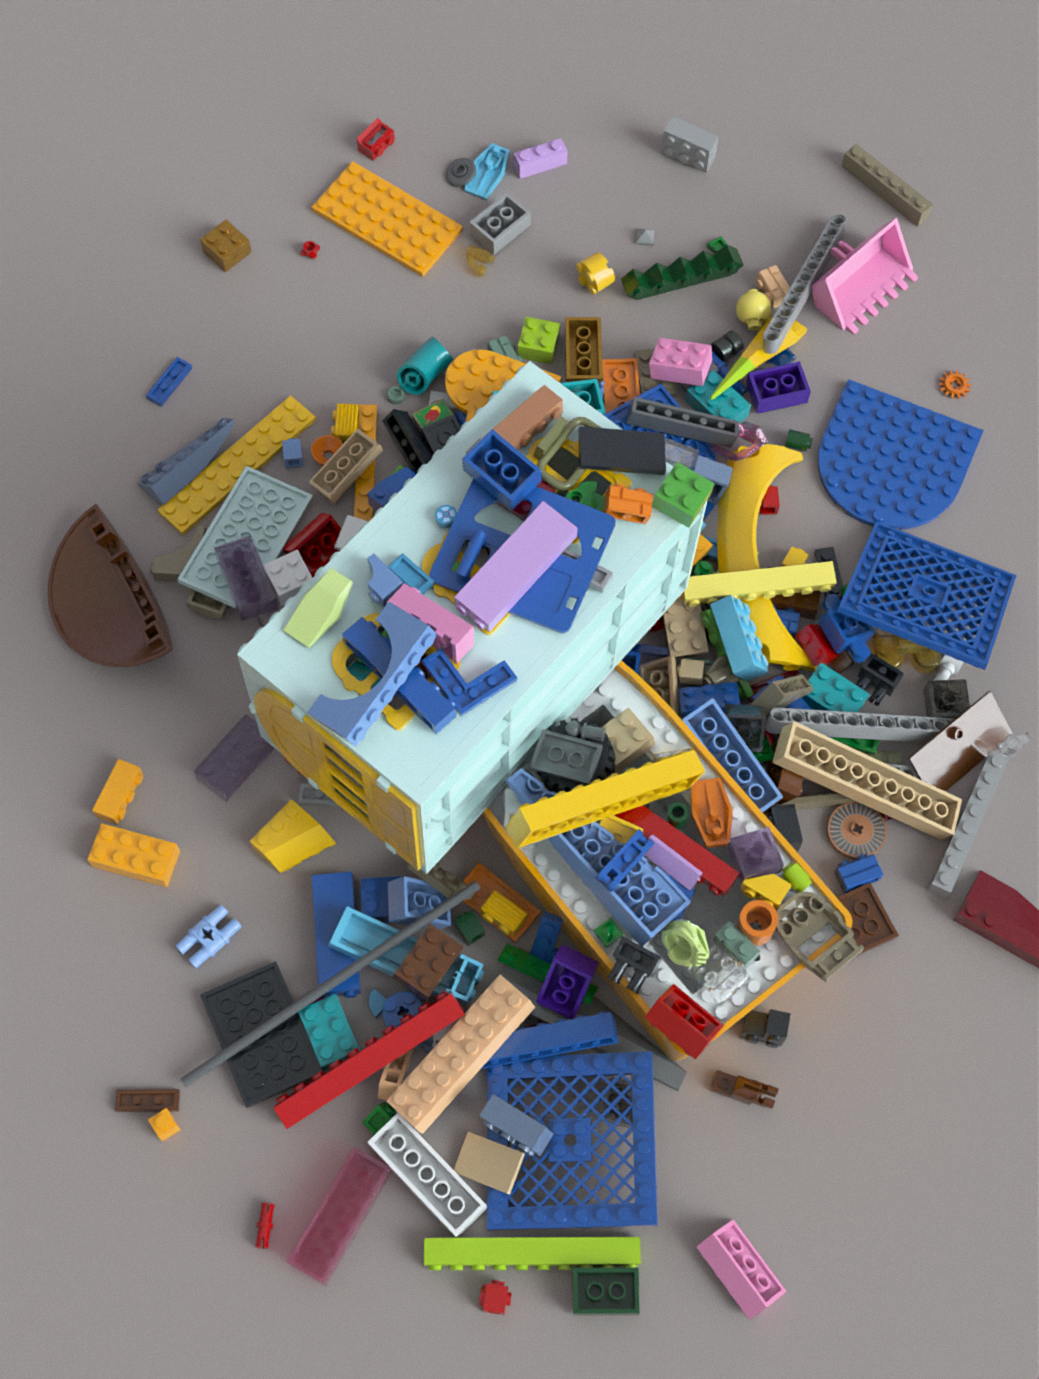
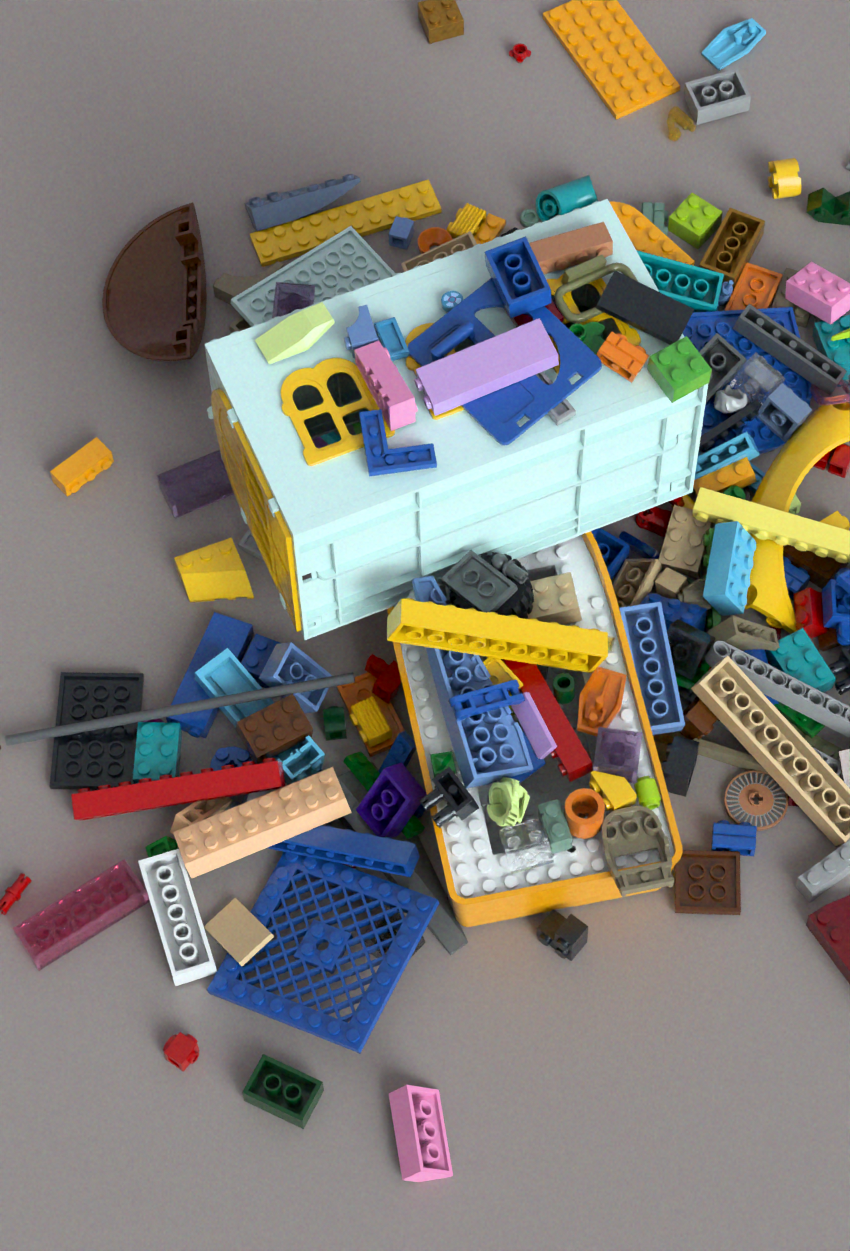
camera: 30 degrees right, 5 degrees down
(134, 855) = (67, 527): light orange brick -> none
(169, 381) = (322, 123): blue tile -> none
(208, 925) = (91, 635): light blue pin -> none
(355, 716) = (272, 432): medium blue arch -> none
(376, 1003) = (212, 748): dark azure tile -> none
(416, 691) = (333, 418): blue brick -> none
(441, 880) = (327, 663): dark tan plate -> none
(461, 172) = (706, 34): dark grey wheel -> none
(498, 864) = (387, 677): none -> red brick
(515, 1126) = (276, 906): sand blue brick -> none
(531, 1252) = (234, 1026): lime brick -> none
(540, 158) = (792, 50): lavender brick -> none
(684, 1021) = (468, 869): red slope -> none
(743, 1089) = (511, 980): reddish brown plate -> none

